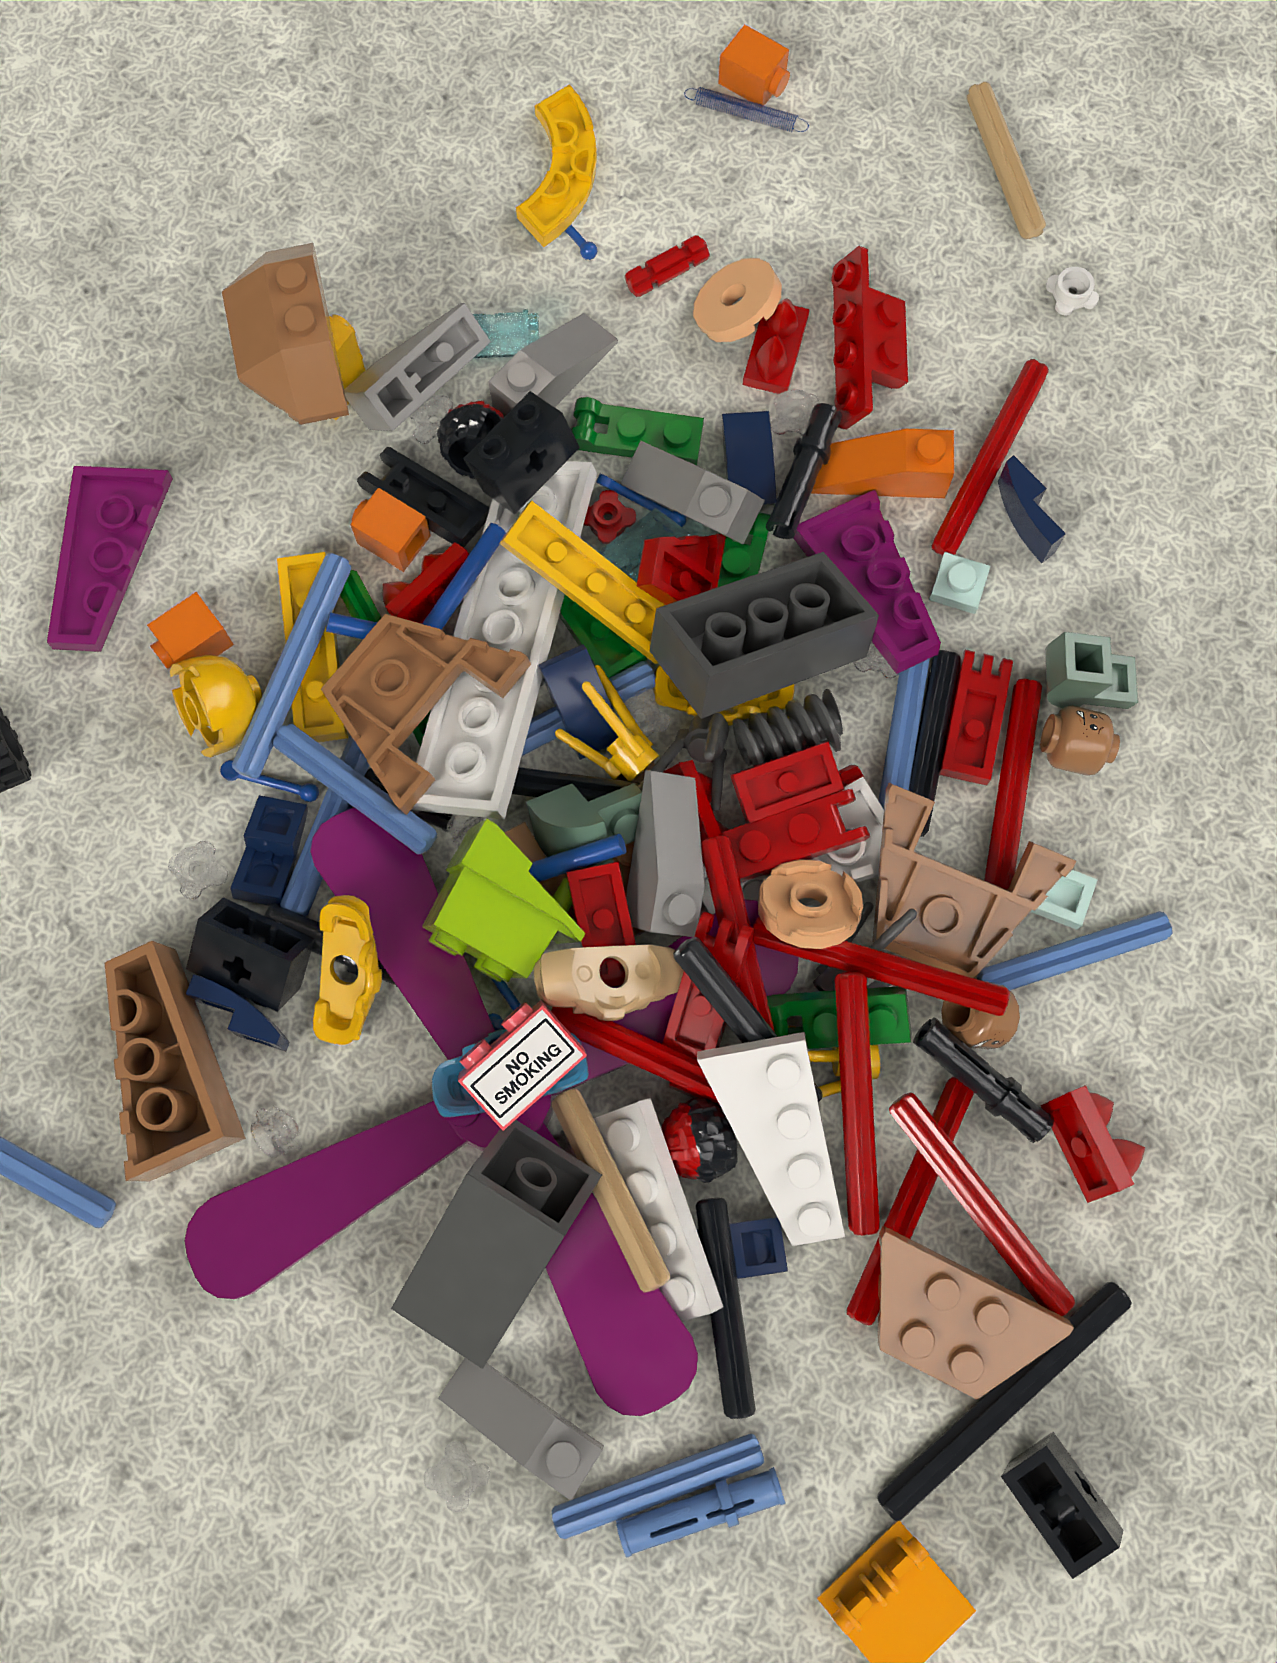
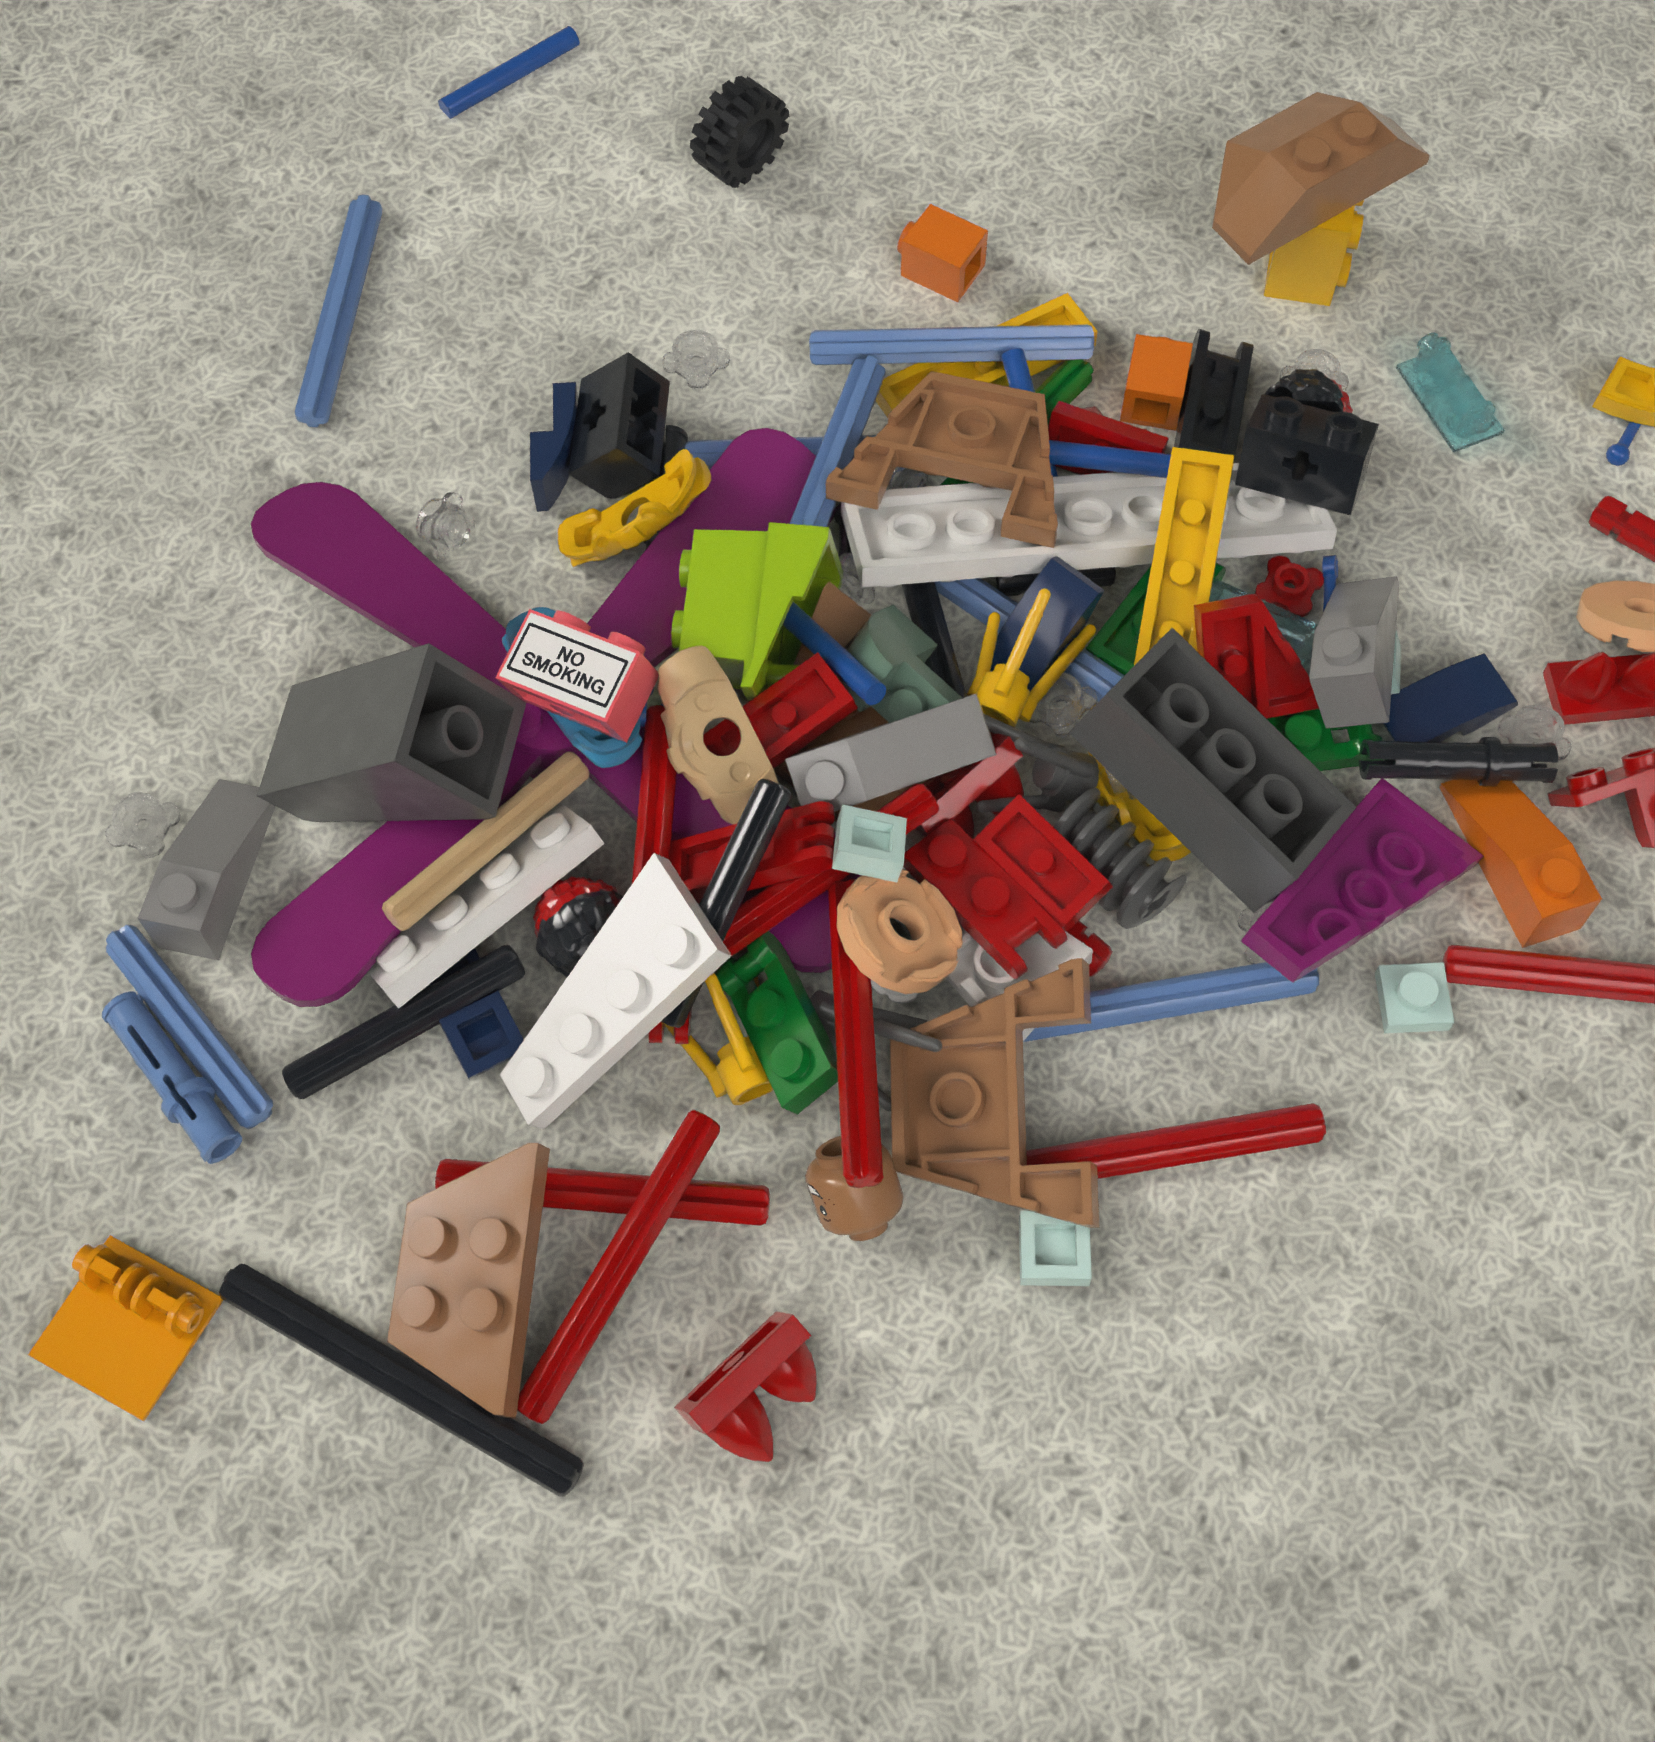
camera: 70 degrees right, 10 degrees down
(100, 548) = (1007, 145): magenta wing -> none
(166, 1066) = (475, 401): medium nougat wedge -> none
(217, 696) = (881, 291): yellow cylinder -> none
(270, 850) = (758, 405): dark blue slope -> none
(307, 792) = (823, 419): blue hinge -> none
(416, 369) = (1361, 331): light grey slope -> none
(551, 364) = (1442, 463): light grey slope -> none
(628, 426) = (1426, 609): green plate -> none
(750, 896) = (869, 843): none -> light aqua plate
(857, 1103) = (686, 1068): red axle -> none
(934, 726) = (1184, 1030): black axle -> none
(976, 719) = (1240, 1070): red hinge -> none
(1000, 1094) = (773, 1218): black pin -> none
(1021, 496) = (1560, 1035): dark blue slope -> none
(1063, 1505) = (287, 1468): black brick -> none
(1079, 740) = (1267, 1198): medium nougat head -> none
(1079, 952) = (990, 1295): medium blue axle -> none
(1086, 672) = (1355, 1167): sand green brick -> none

